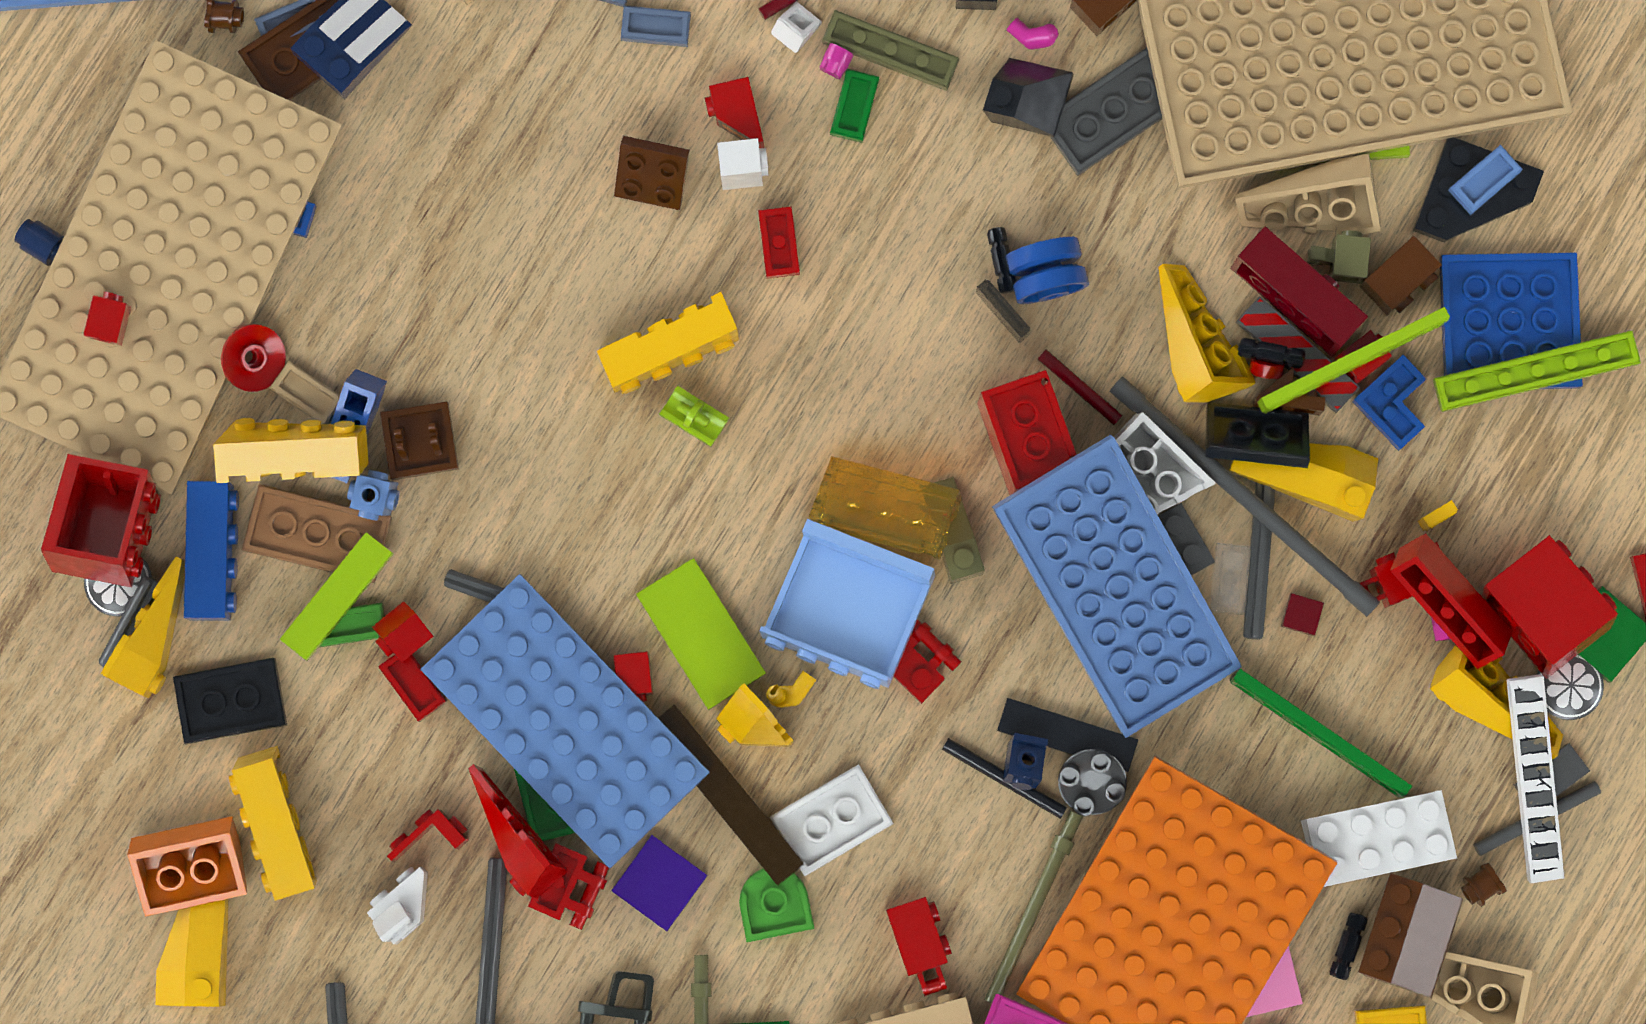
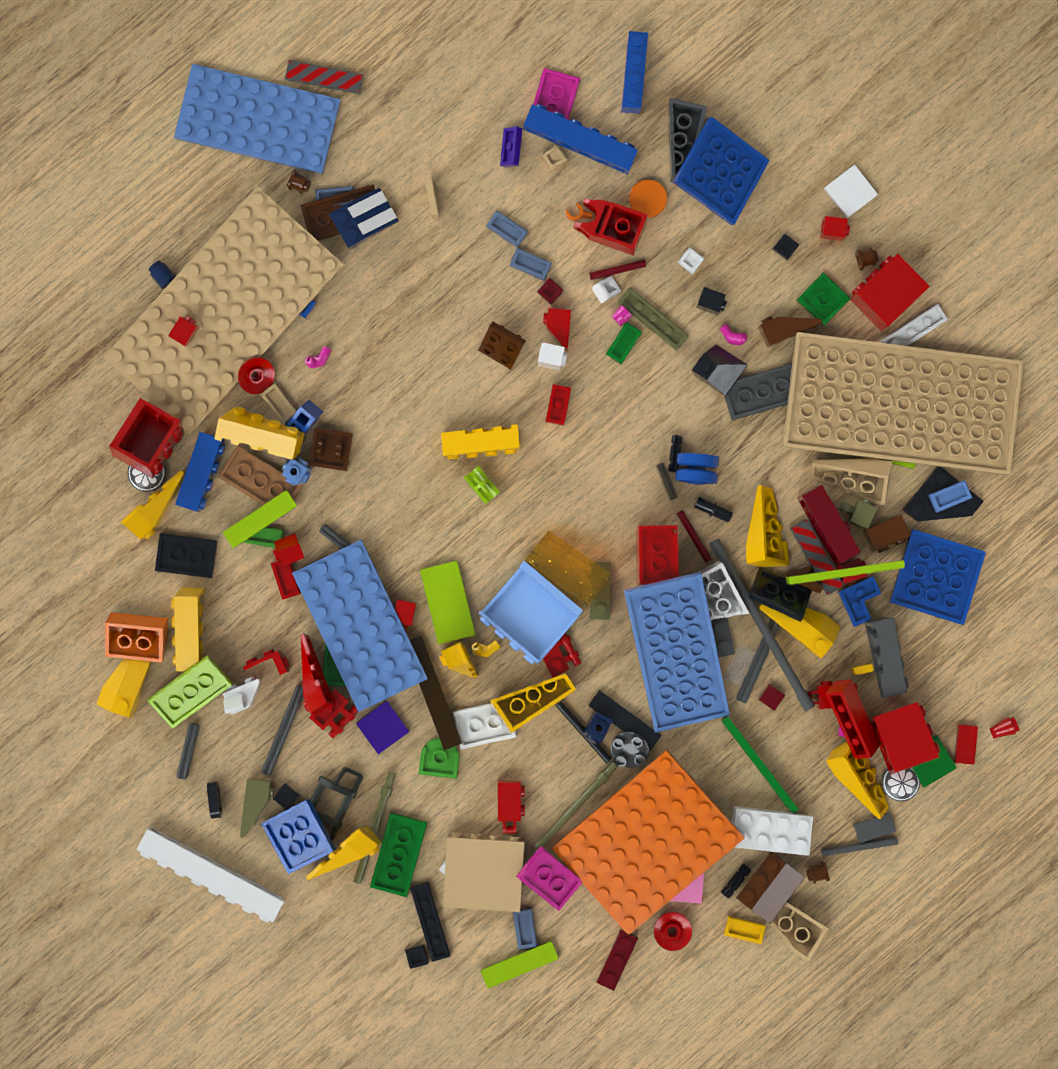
camera: 15 degrees right, 5 degrees up
(139, 600) = (144, 496): dark grey axle -> none
(310, 928) = (190, 691): none -> lime tile
(350, 300) = (319, 360): none -> dark pink arm
(703, 60) = (550, 291): none -> dark red tile
(892, 759) = (526, 704): none -> yellow wedge
(1097, 332) = (713, 509): none -> black axle
(1266, 369) = (797, 559): red tile -> none
(1271, 353) = (803, 552): black axle -> none
(1471, 480) = (886, 656): none -> dark grey wedge
(1535, 778) = (865, 826): tile -> none
(1536, 371) = (942, 609): lime tile -> none

